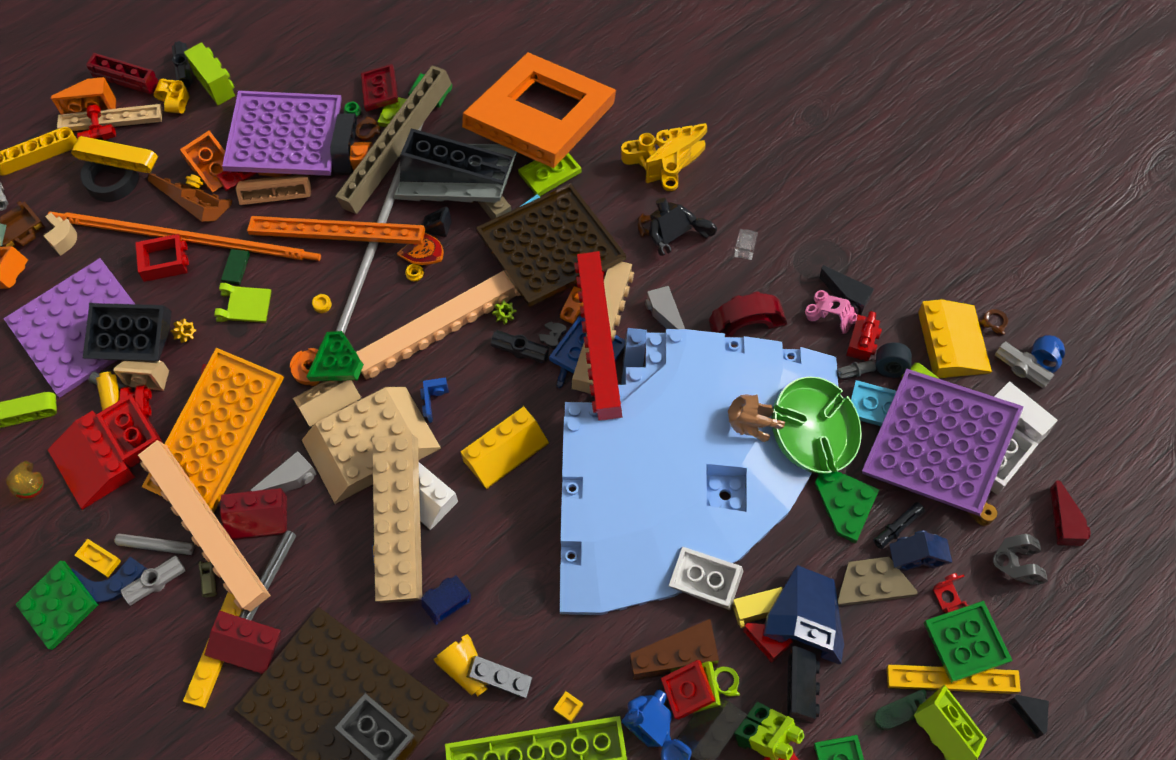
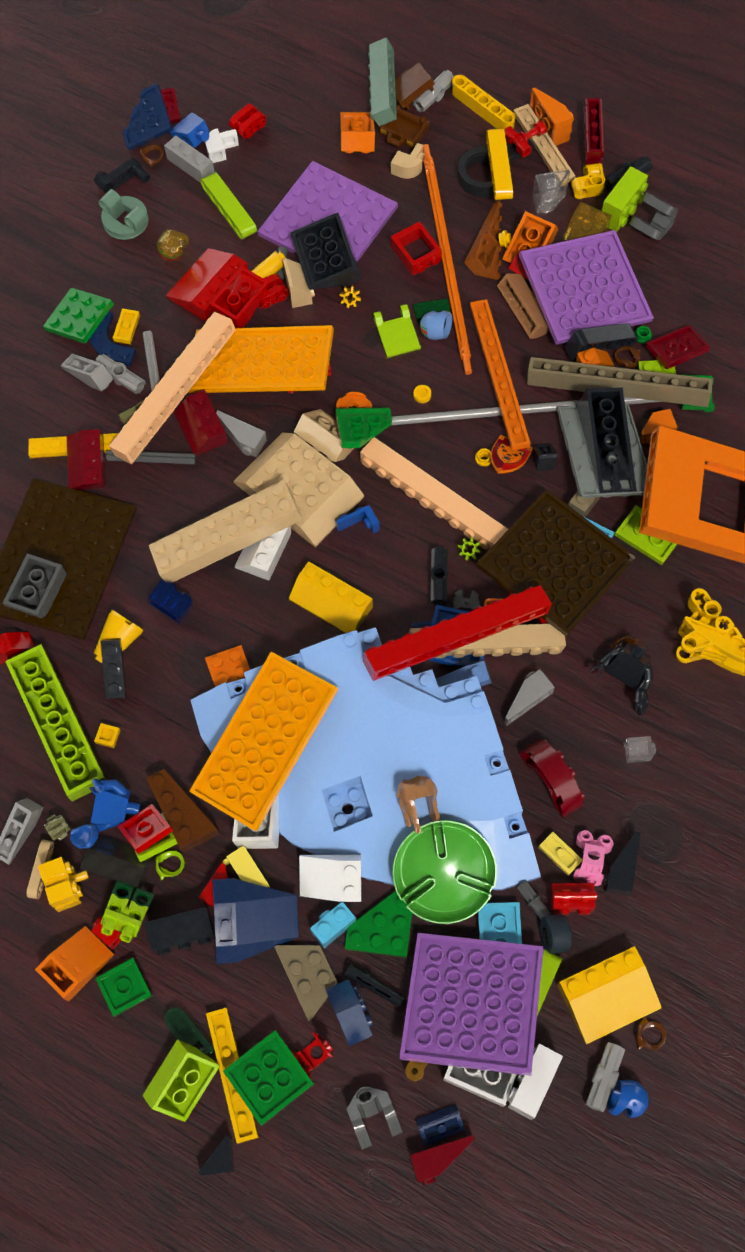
camera: 70 degrees right, 5 degrees up
(133, 612) = (88, 371): none -> light grey slope
(165, 127) = (549, 190): none -> clear slope
(217, 112) = (587, 222): none -> clear yellow slope
(244, 54) = (662, 220): none -> dark grey piece
(256, 266) = (433, 325): none -> medium blue helmet
(449, 125) = (663, 418): none -> orange slope
(539, 565) = (227, 665): none -> orange plate
(642, 540) = (264, 741): none -> light orange plate
(788, 528) = (331, 877): none -> white slope
(820, 334) = (560, 853): none -> light yellow plate
(833, 542) = (332, 924): none -> medium azure brick
(1035, 510) = (440, 1124): none -> dark blue slope

